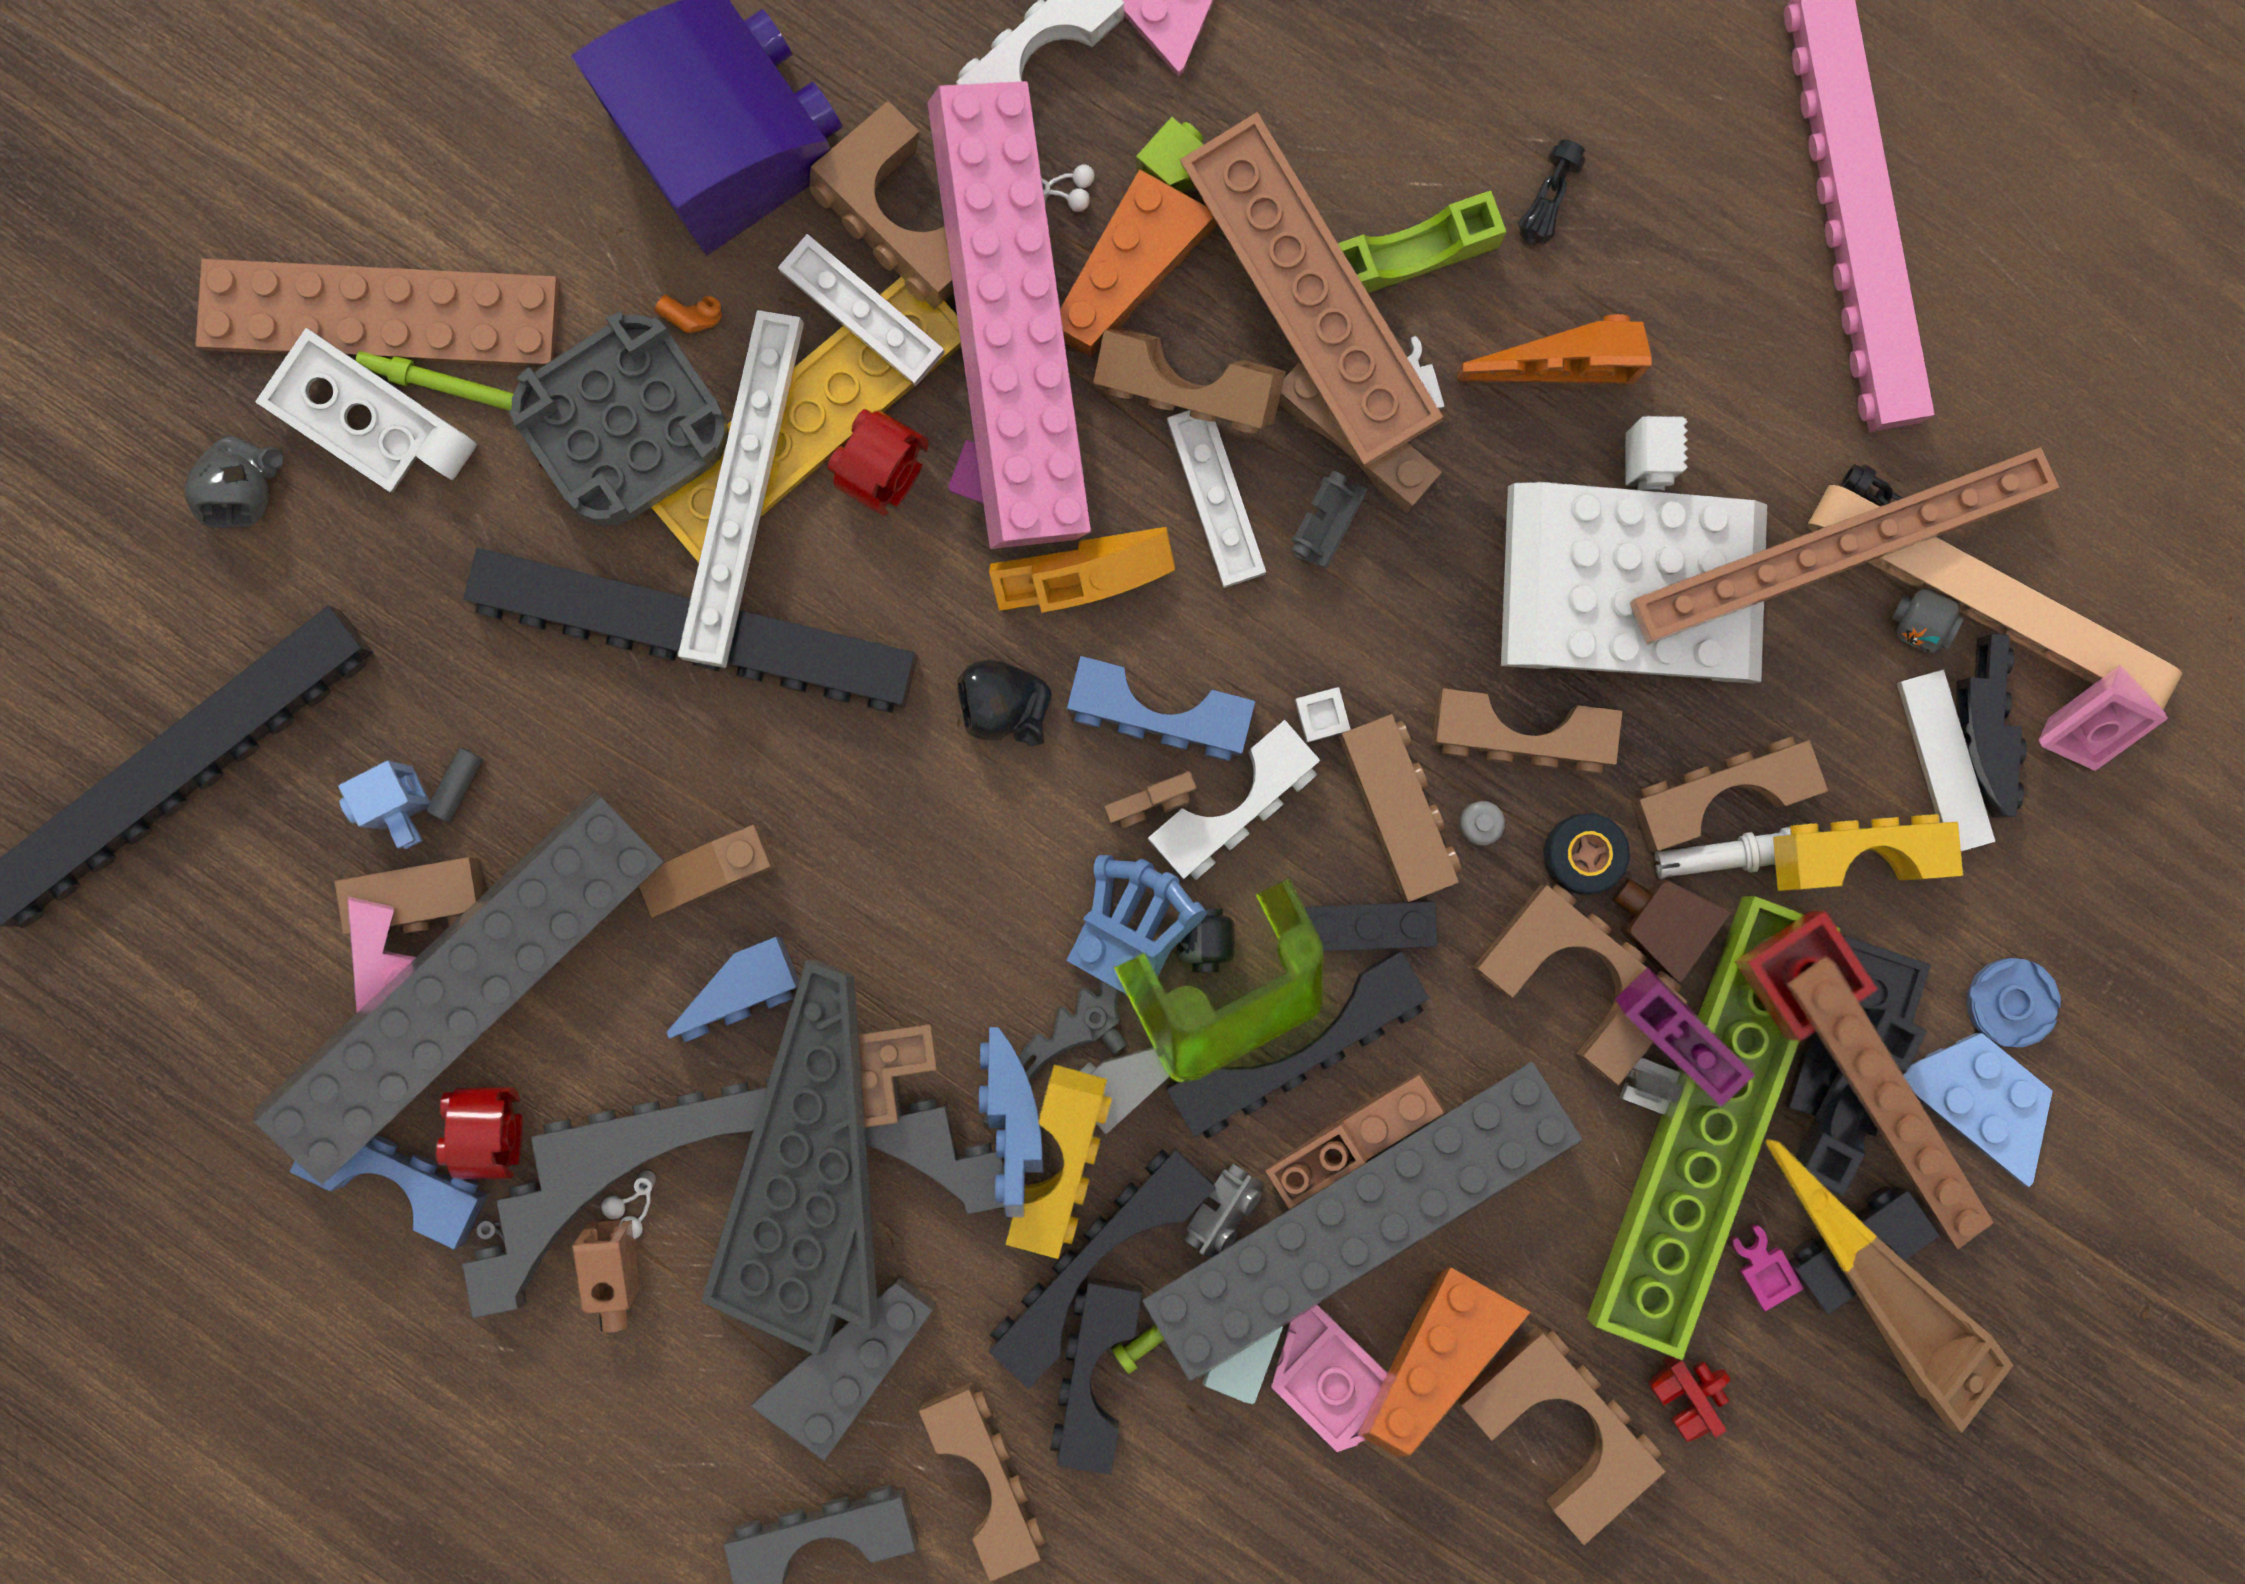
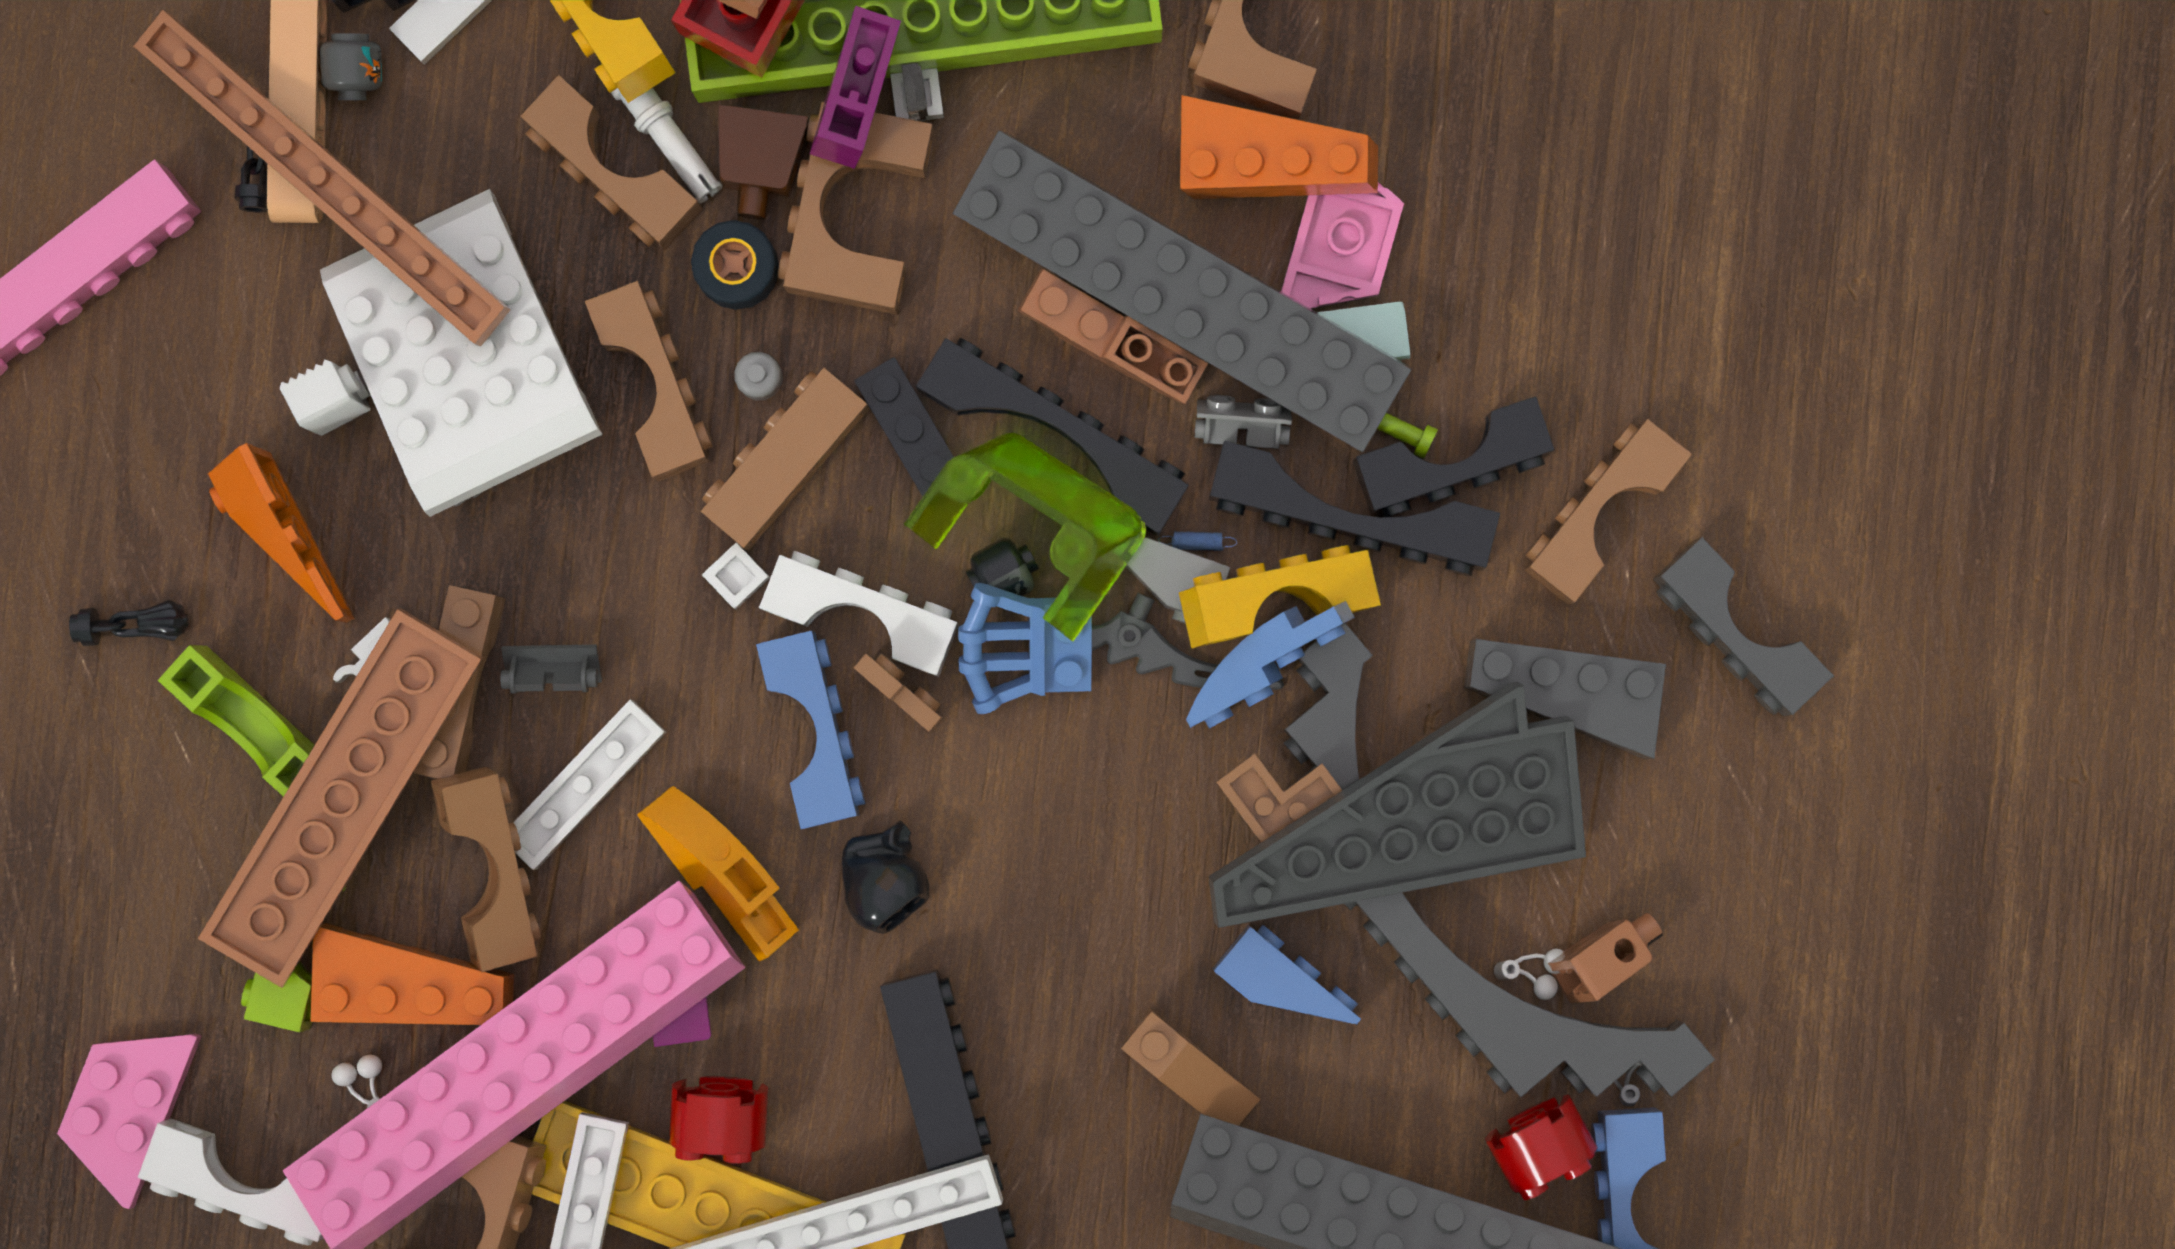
camera: 115 degrees left, 0 degrees up
(1144, 1118) = (1197, 541): none -> light blue piece

